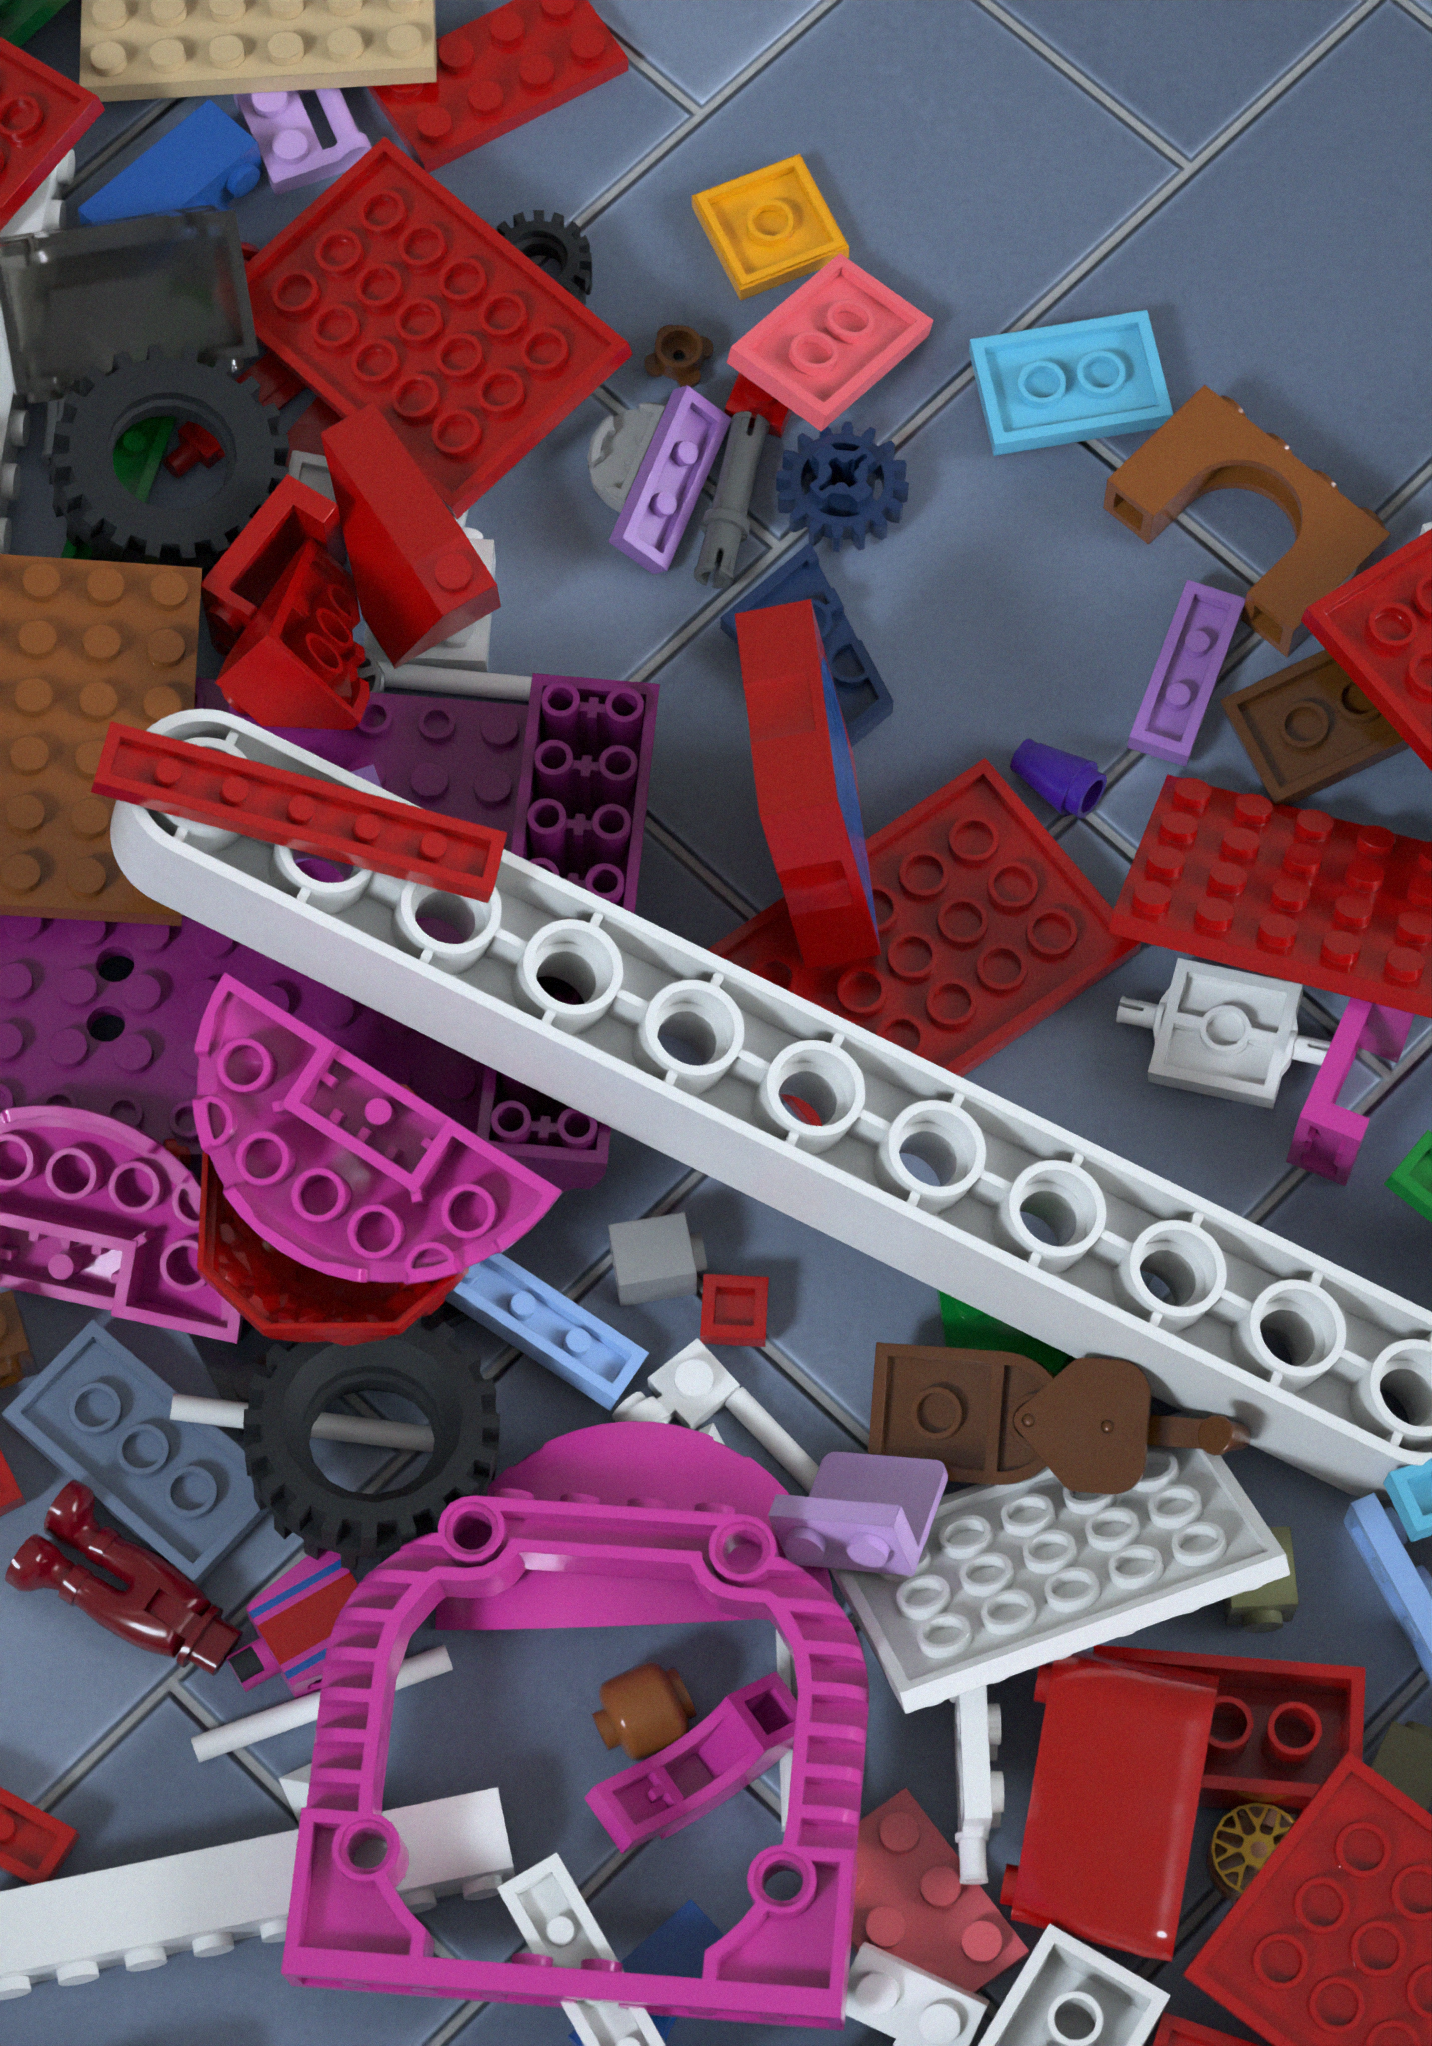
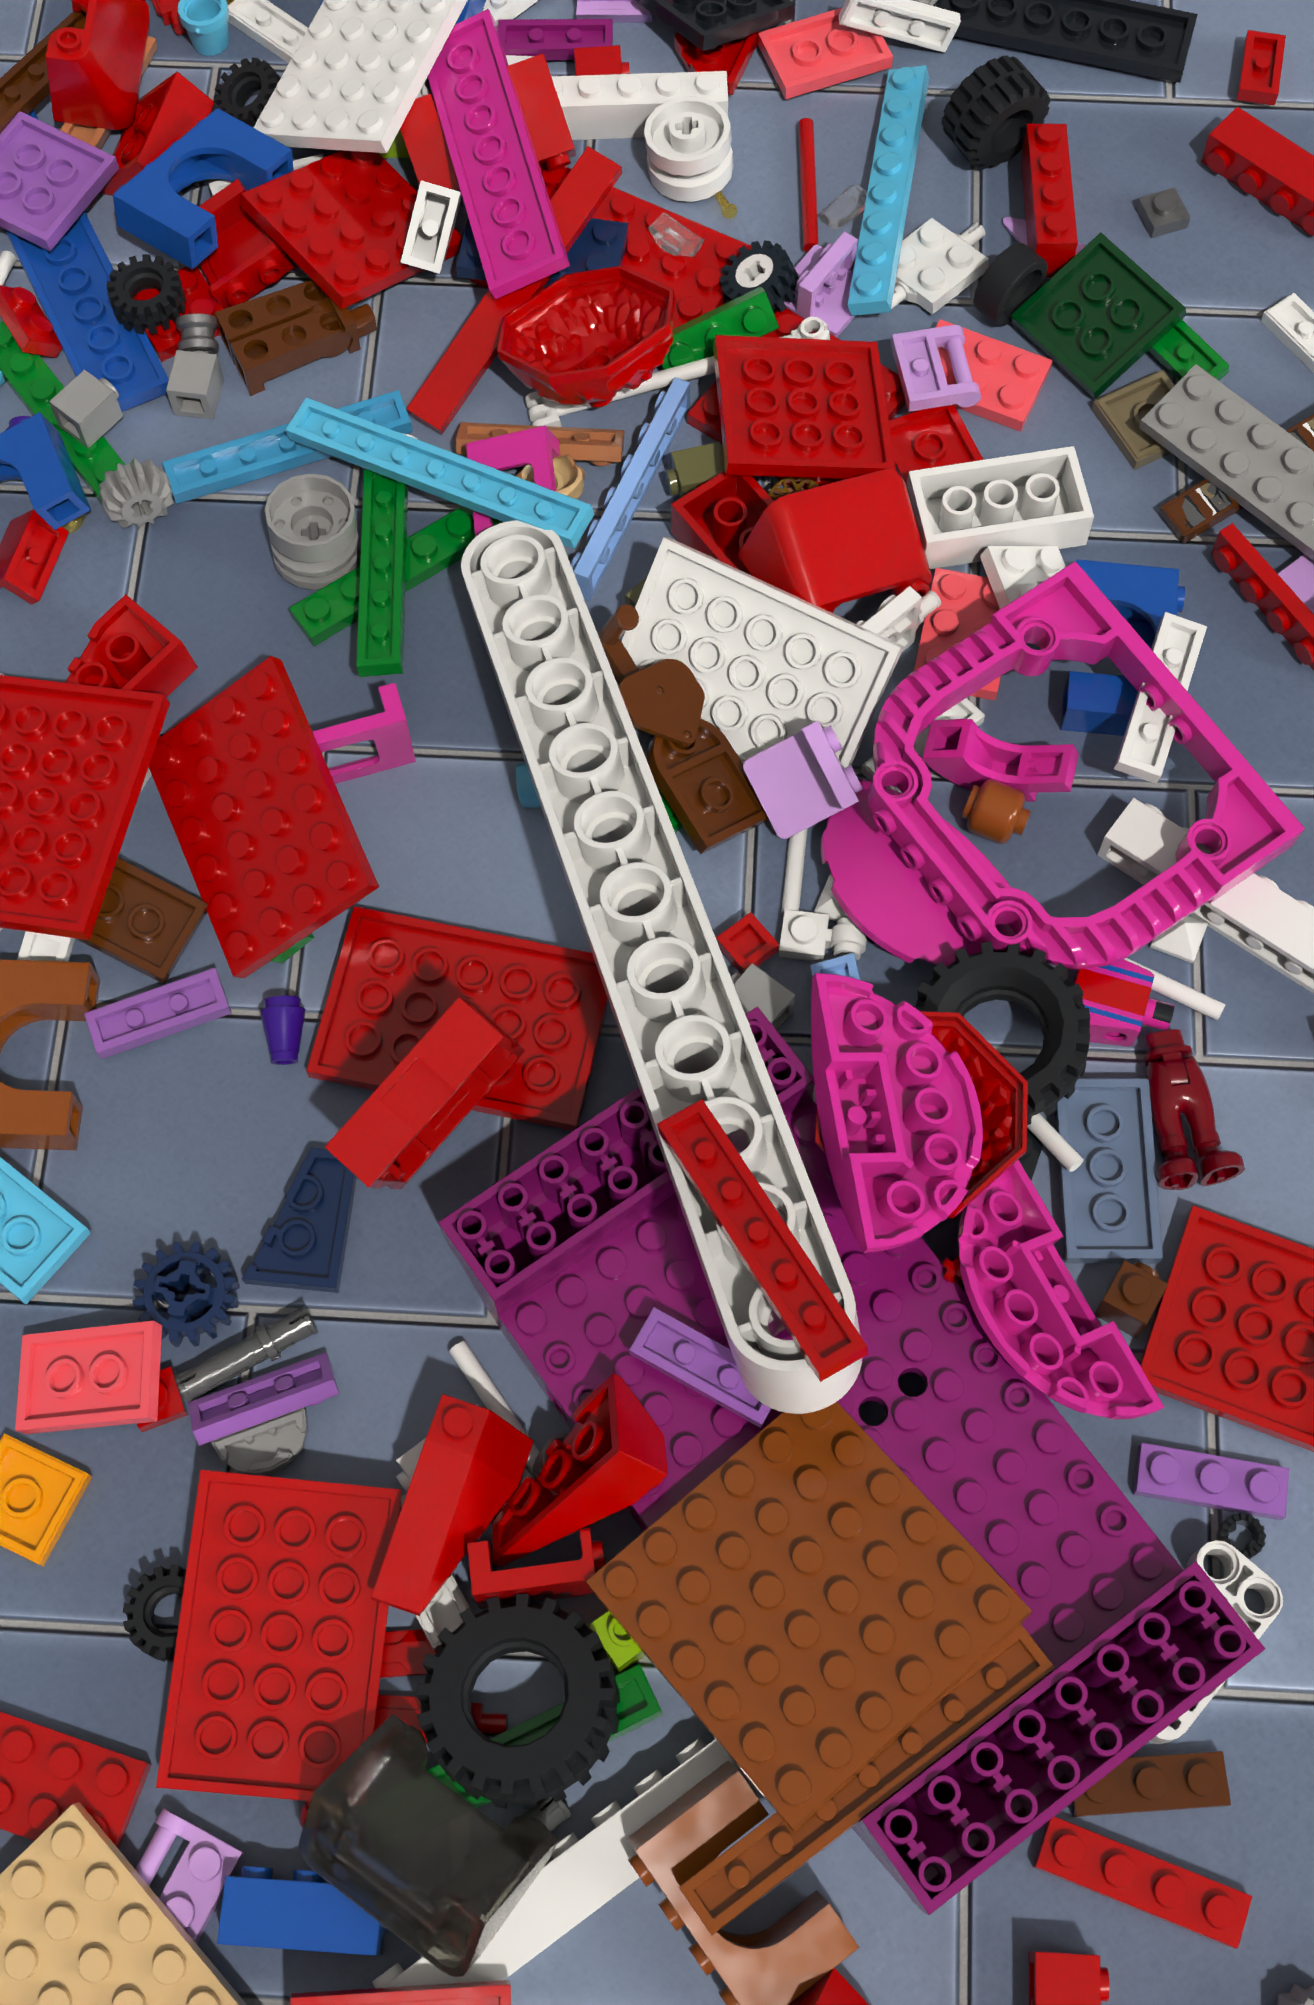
camera: 130 degrees left, 0 degrees up
(679, 340) = (156, 1464): reddish brown plate -> none
(1224, 1032) = (382, 825): white plate -> none

